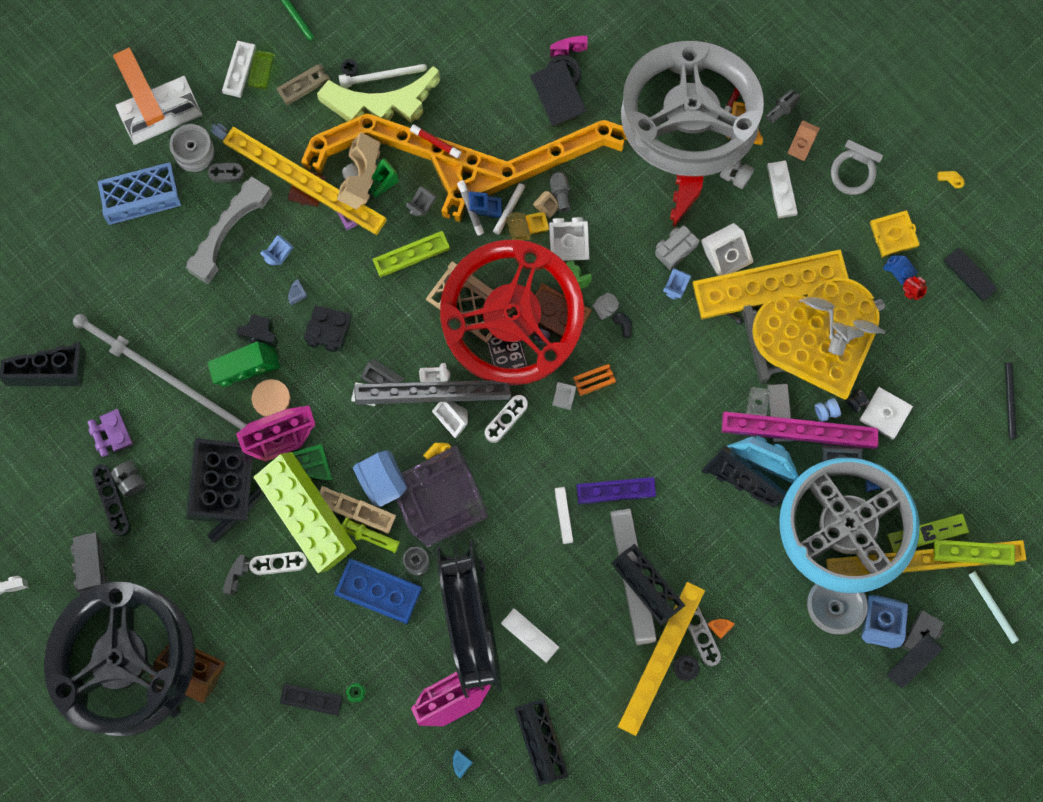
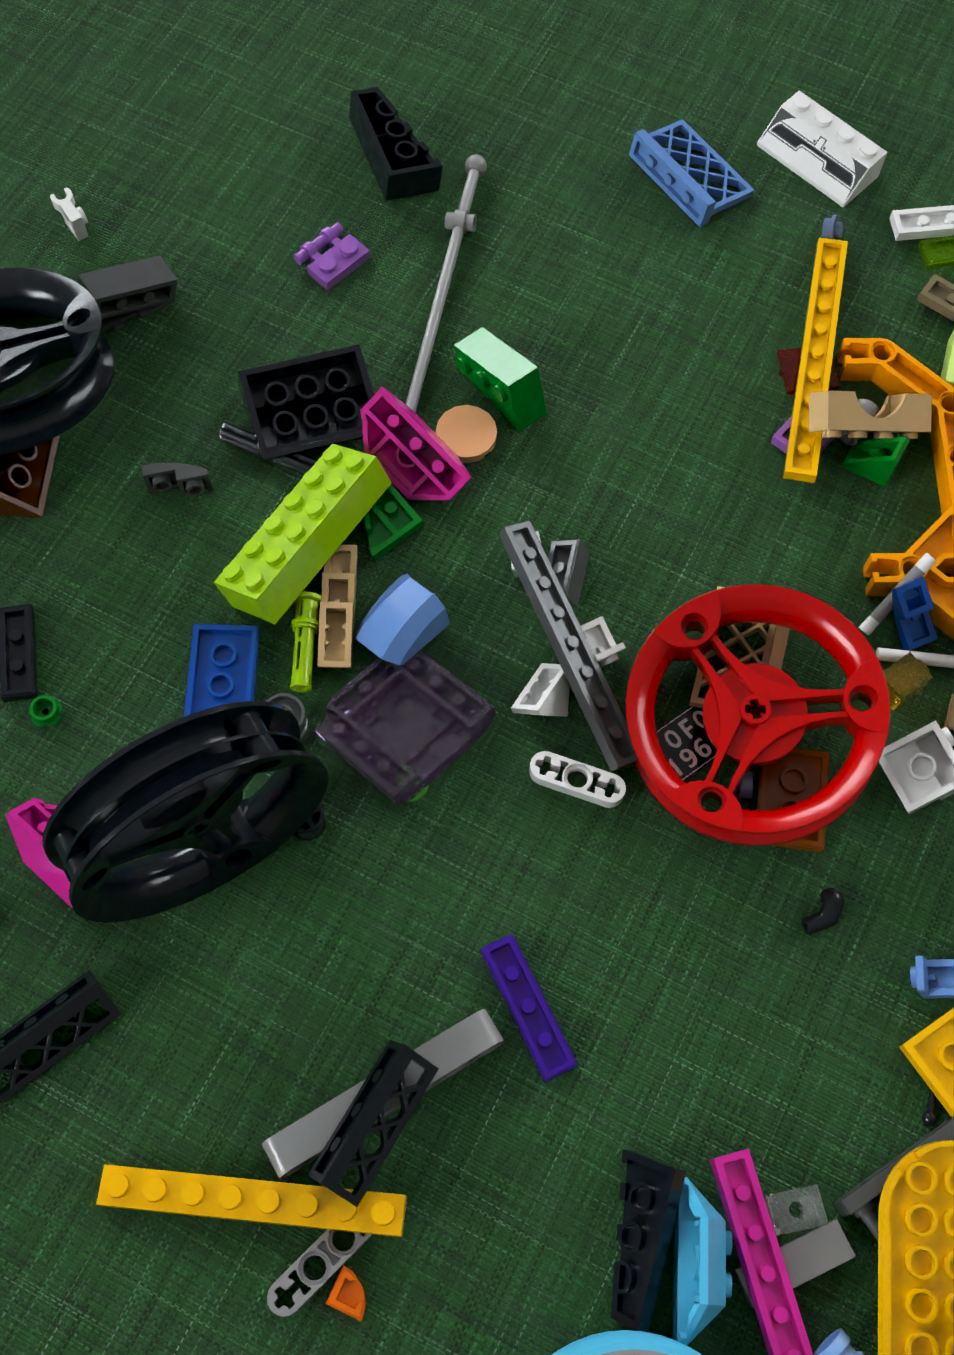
camera: 65 degrees right, 10 degrees down
(109, 501) = (231, 286): black beam -> none
(127, 477) = (271, 294): dark grey wheel -> none
(139, 87) = (838, 104): orange tile -> none
(192, 148) = (788, 202): light grey wheel -> none
(226, 171) = (779, 259): dark grey beam -> none
(252, 196) = (751, 298): light grey arch -> none
(257, 330) = (560, 378): black brick -> none
(263, 559) = (217, 519): white beam -> none
(277, 251) = (691, 362): medium blue bracket -> none
(296, 293) = (642, 411): sand blue tile -> none
(327, 328) = (606, 469): black plate -> none
(411, 254) = (779, 541): lime plate -> none
(421, 202) = (868, 525): dark grey bracket -> none
(436, 449) = (482, 688): yellow arm -> none
(530, 635) = (223, 952): white plate -> none
(537, 223) = (926, 706): yellow plate -> none
(563, 515) = (448, 931): white beam -> none
(564, 396) = (655, 858): light grey panel -> none
(582, 281) = (863, 809): bright green bracket -> none
(590, 373) = (717, 892): orange tile -> none
(606, 305) = (842, 869): light grey piece -> none
(686, 667) = (252, 1256): black piece -> none

